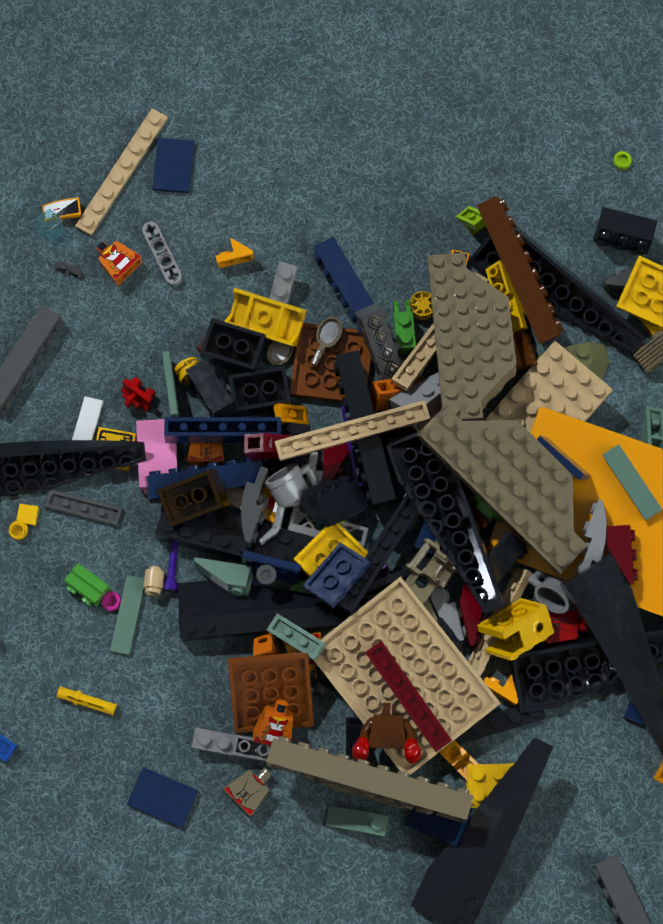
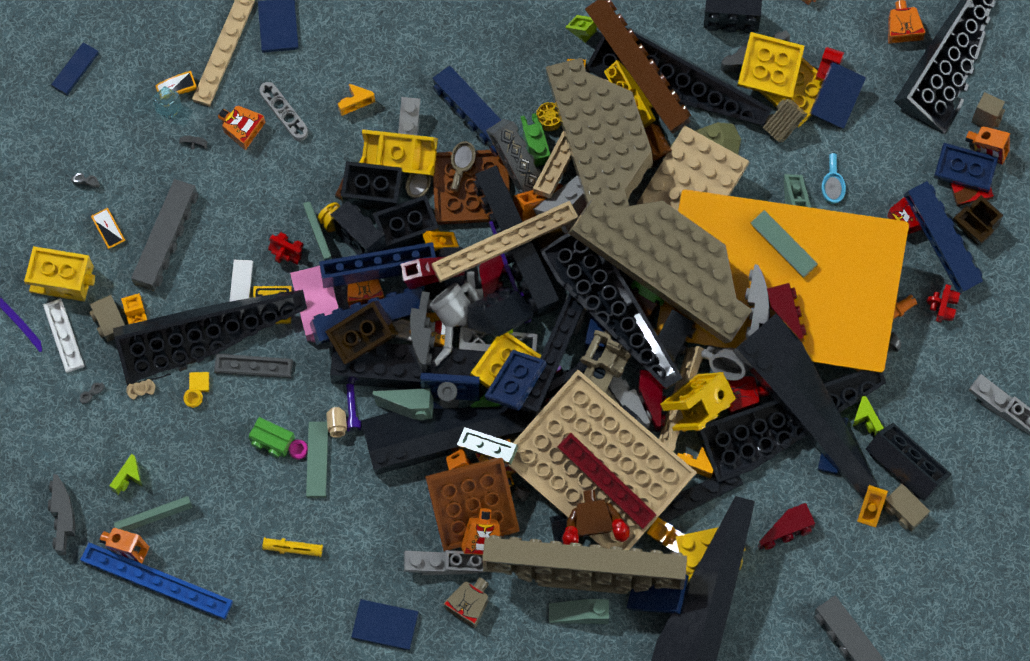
camera: 10 degrees left, 5 degrees down
(564, 459) = (718, 235): dark blue tile -> none
(589, 768) = (794, 520): none -> dark red slope

